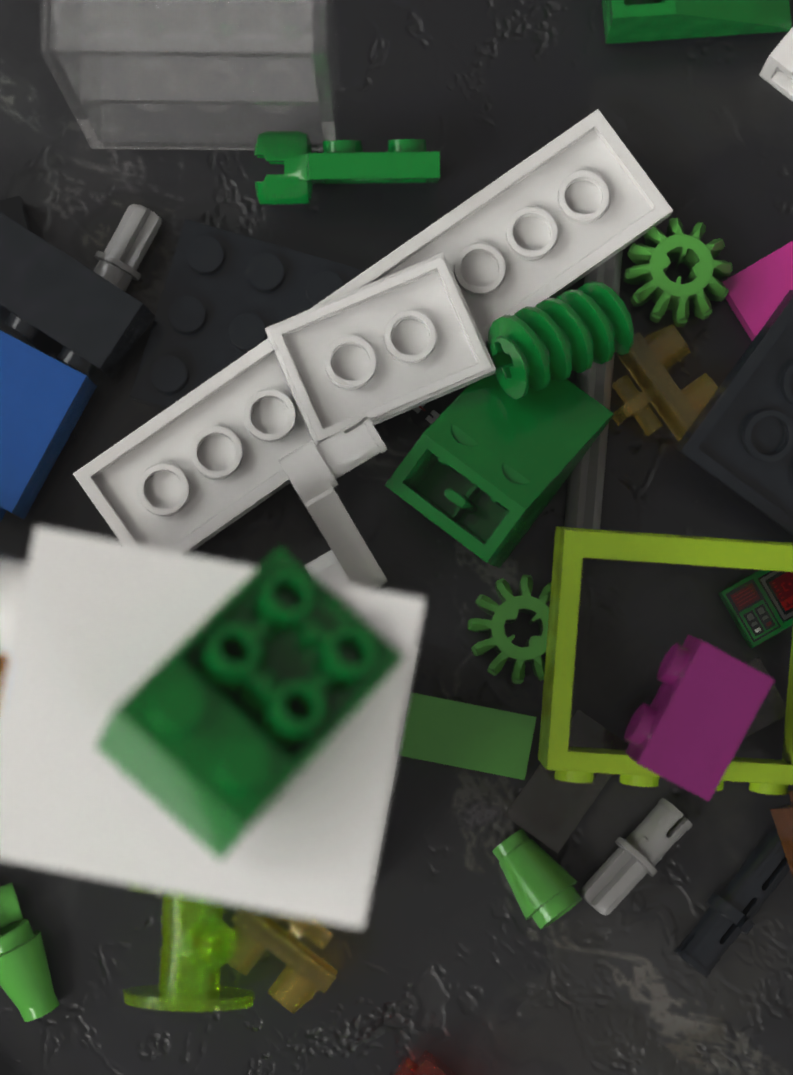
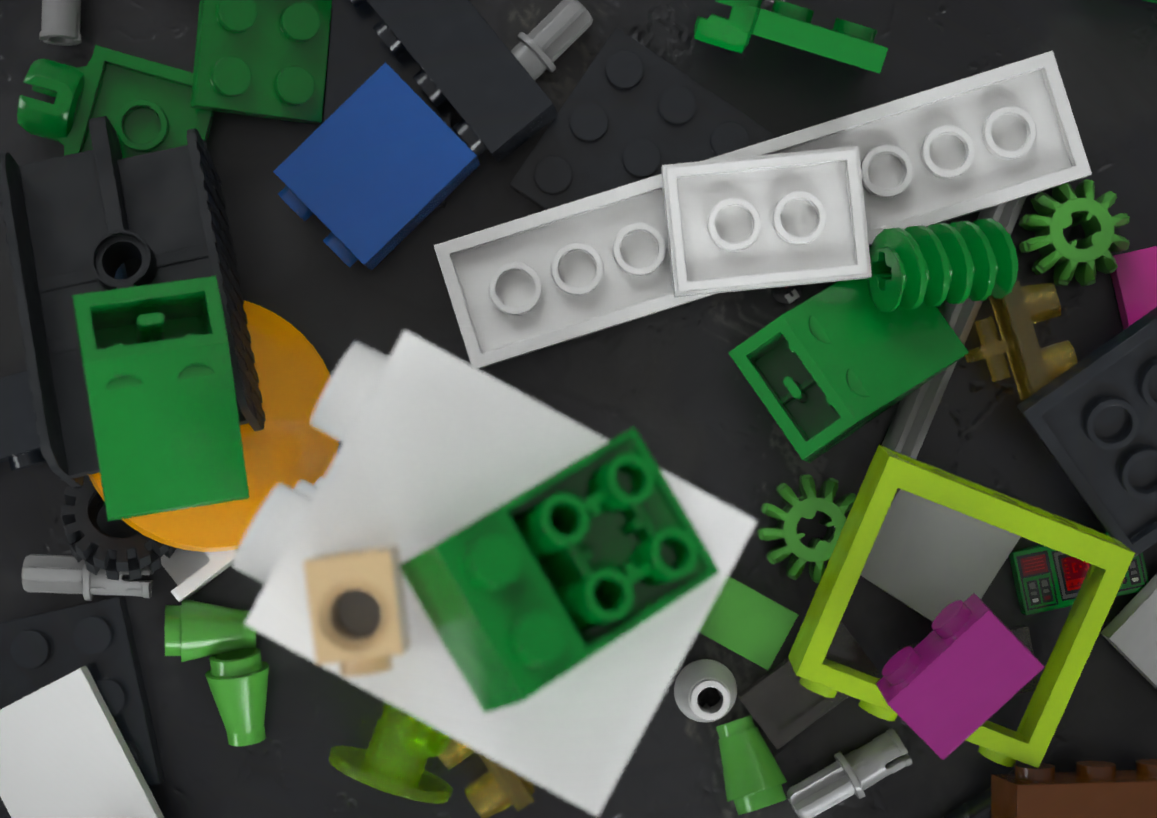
camera: 15 degrees right, 5 degrees up
(33, 784) = (367, 570): none -> tan brick
(314, 475) = (665, 318): white beam -> none
(453, 811) = (699, 676): none -> white cone
(642, 610) = (934, 554): none -> light grey tile

